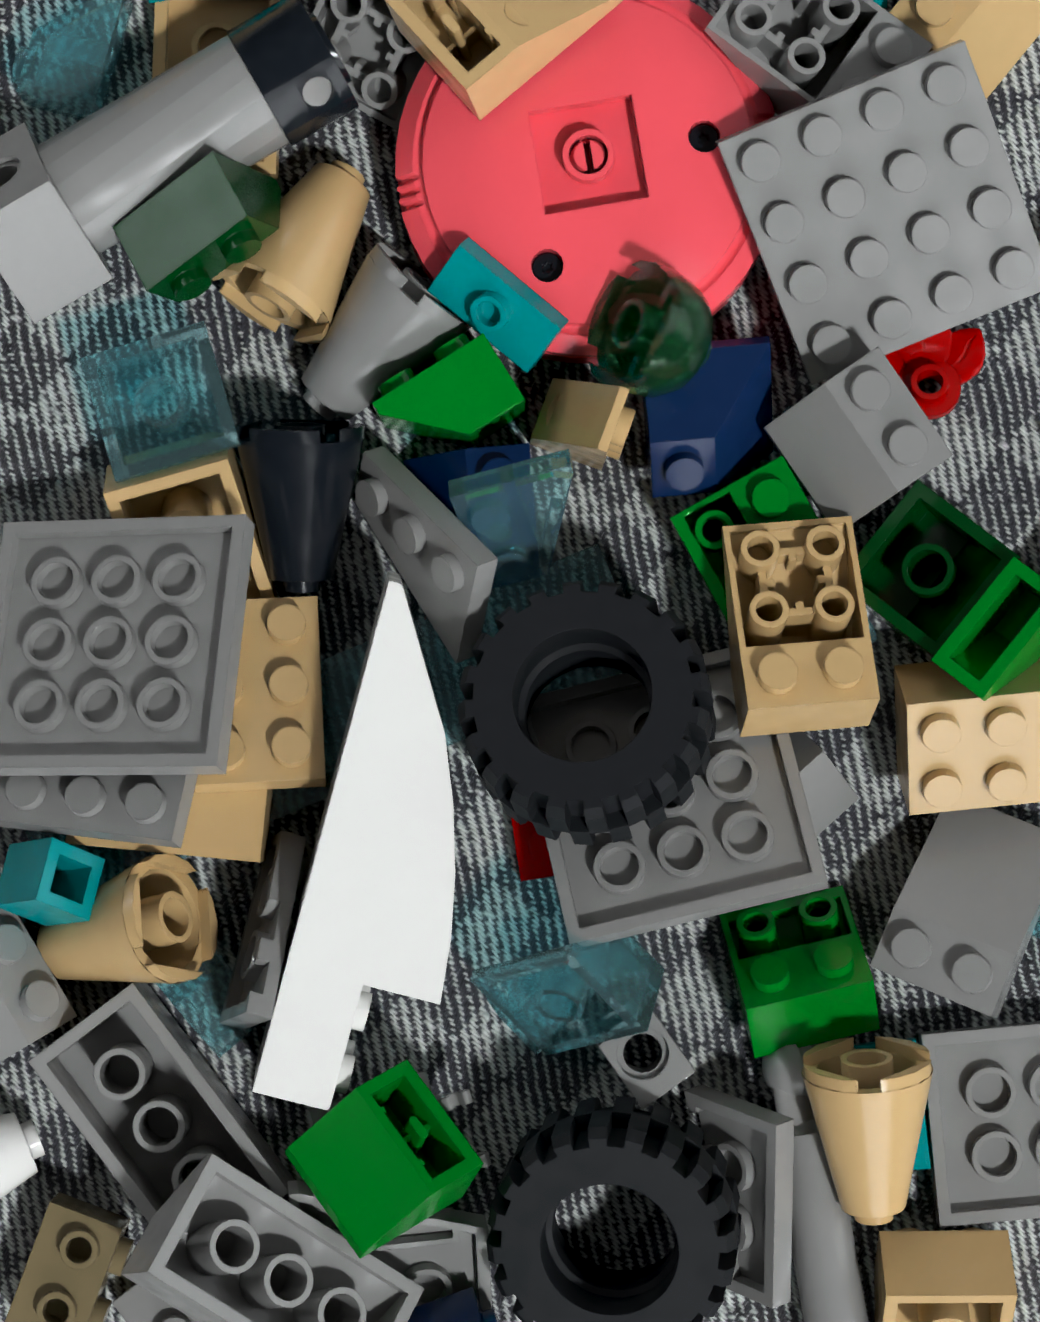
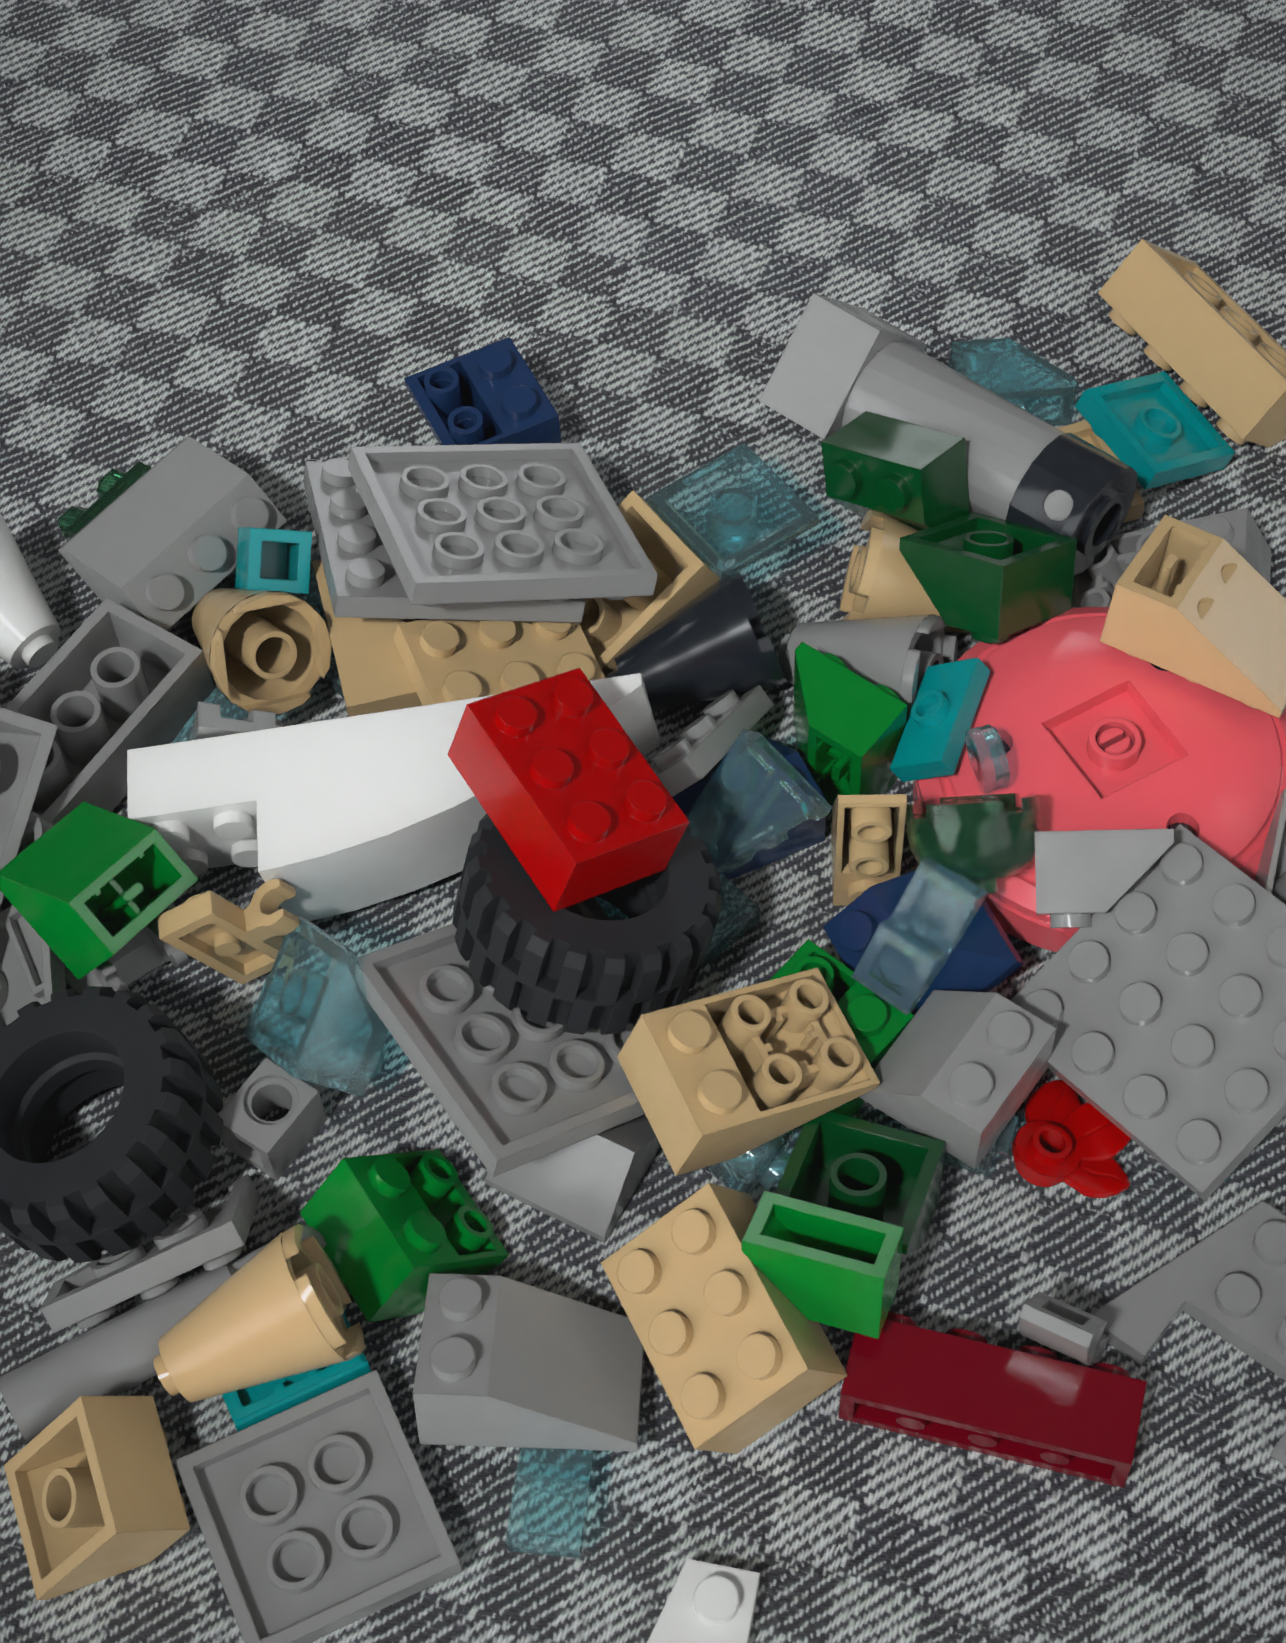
camera: 70 degrees right, 30 degrees down
(351, 186) = (992, 573): none -> dark green slope
(459, 1040) = (228, 937): none -> tan plate
(517, 700) = (567, 788): none -> red brick
(575, 284) = (987, 758): none -> clear light blue tile
(729, 236) = (1091, 870): none -> light grey slope
(729, 423) = (919, 935): none -> clear light blue slope

